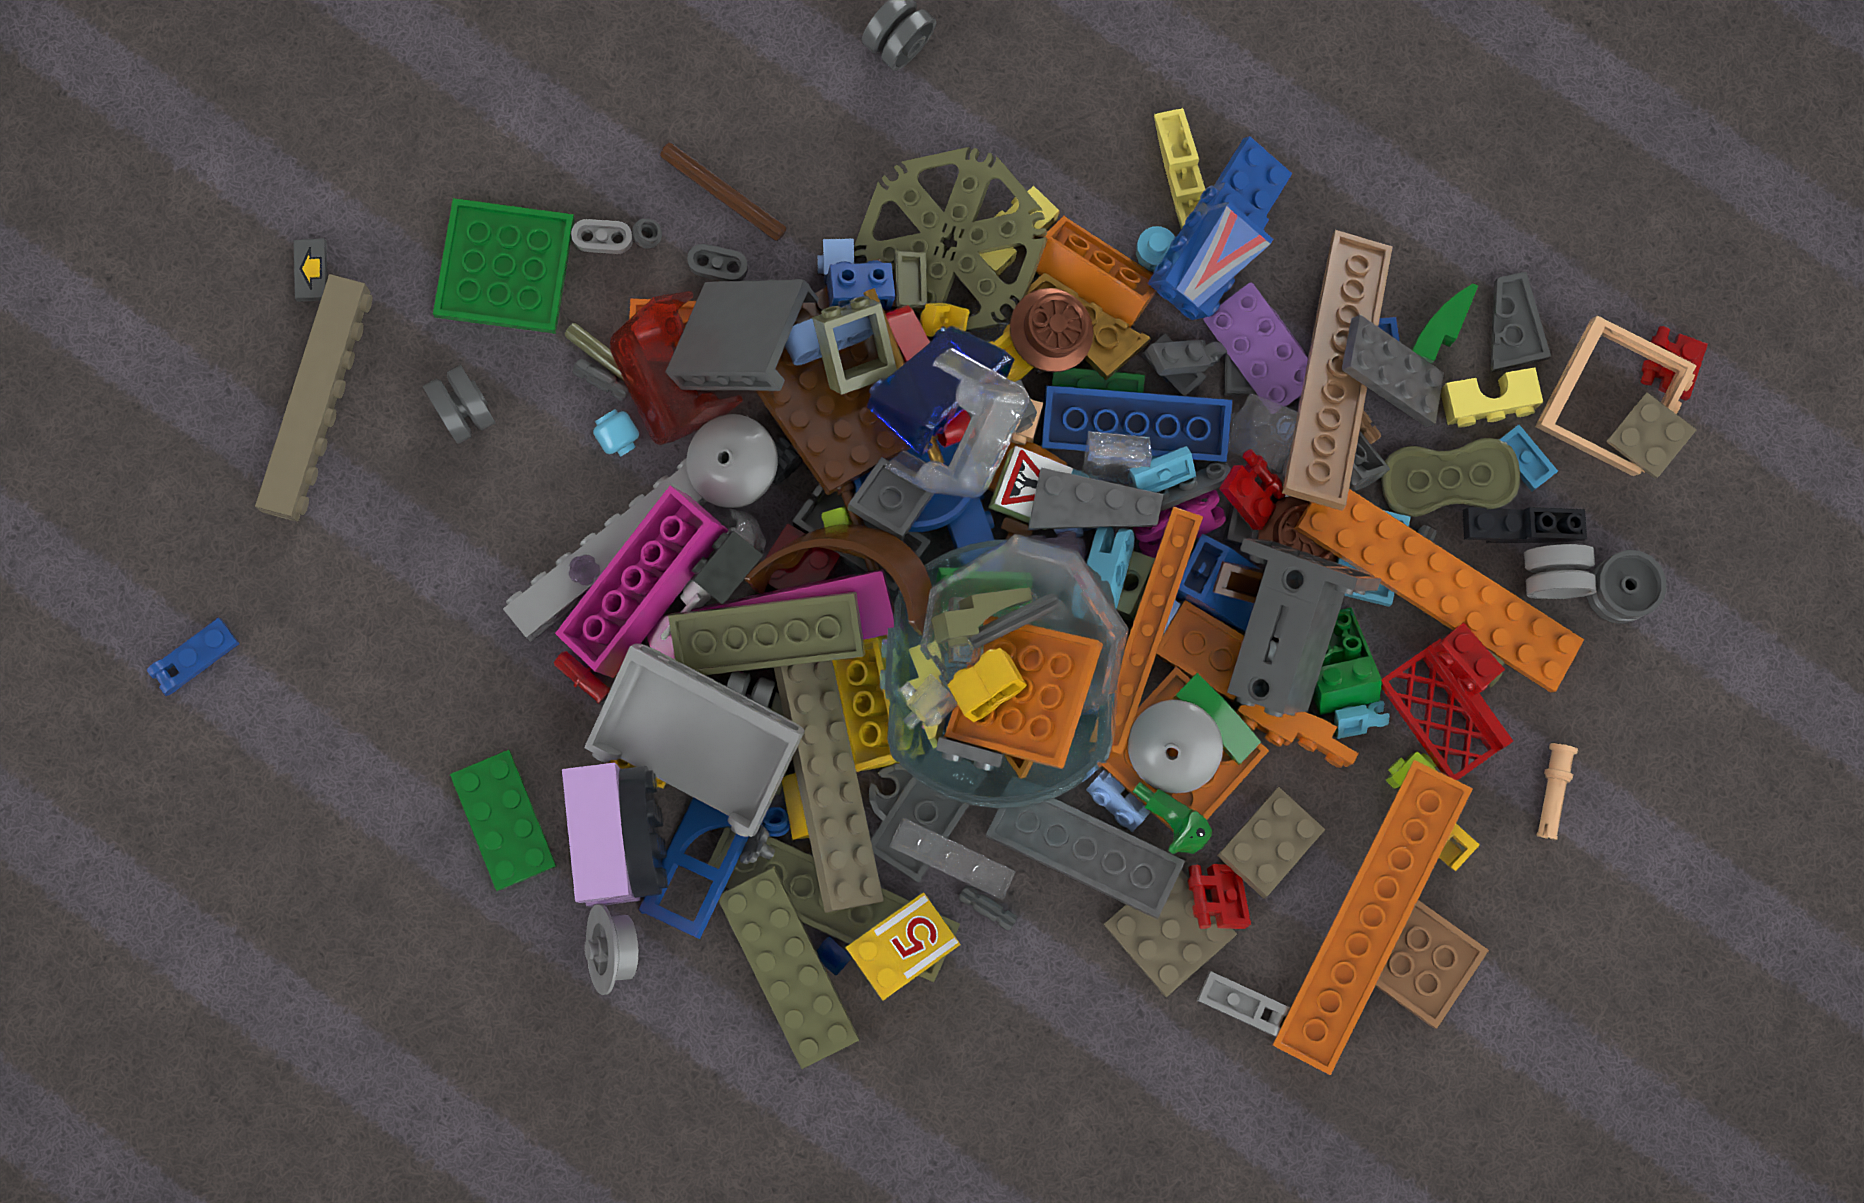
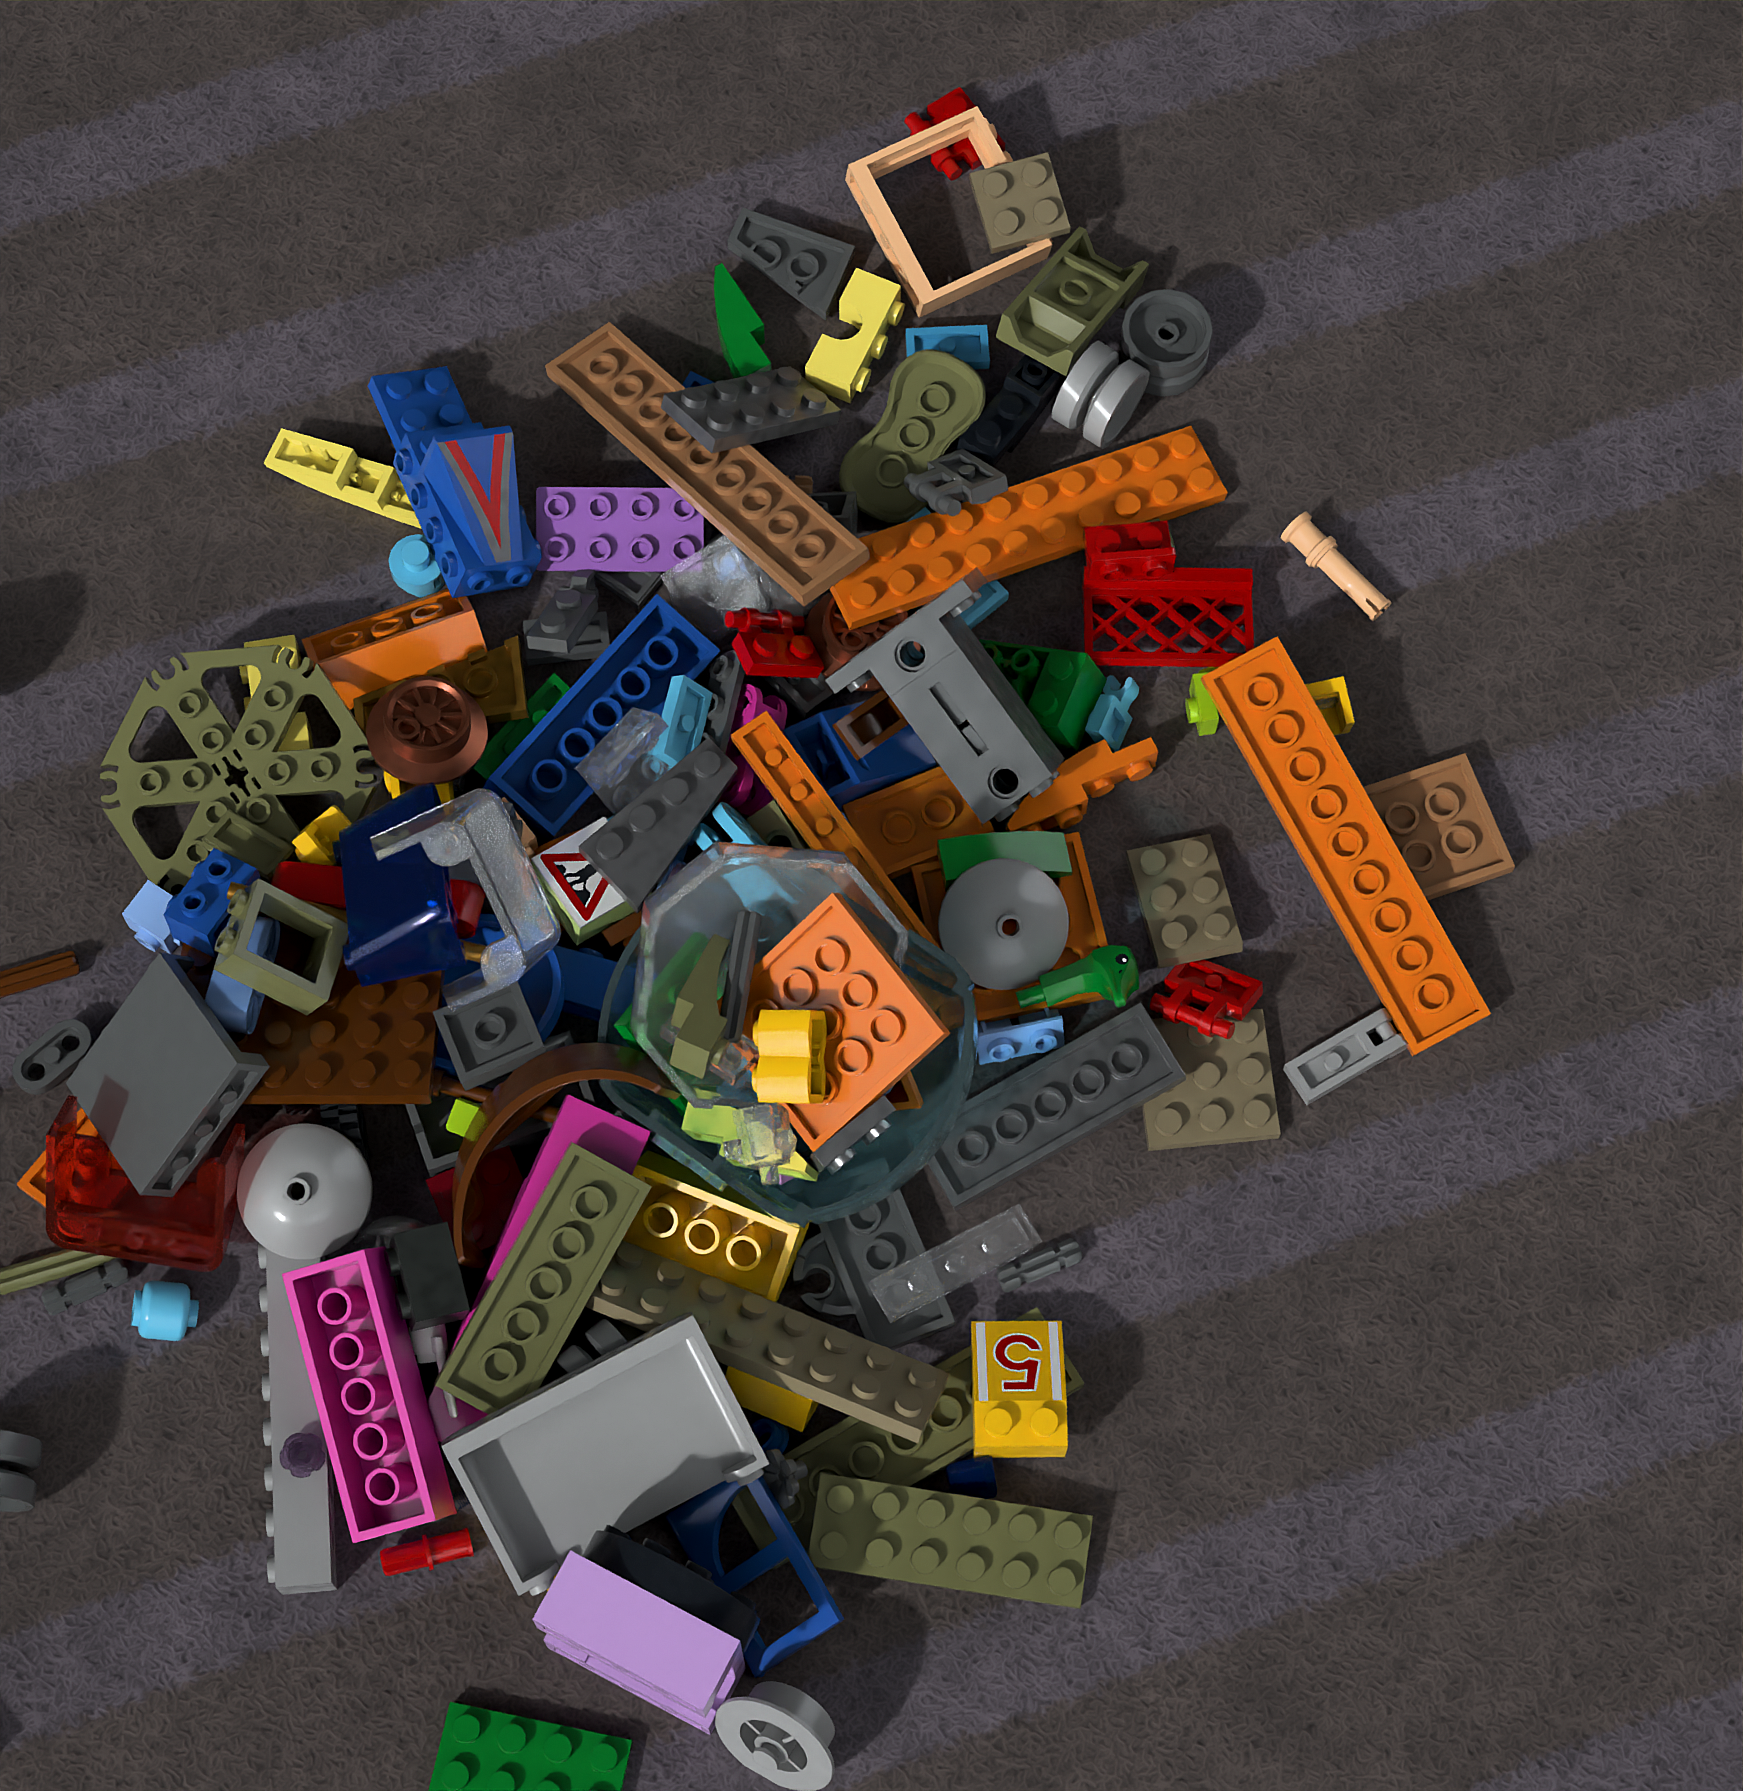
camera: 45 degrees left, 10 degrees down
(1442, 530) = (954, 479): none -> dark grey plate
(1607, 511) = (1068, 303): none -> olive piece

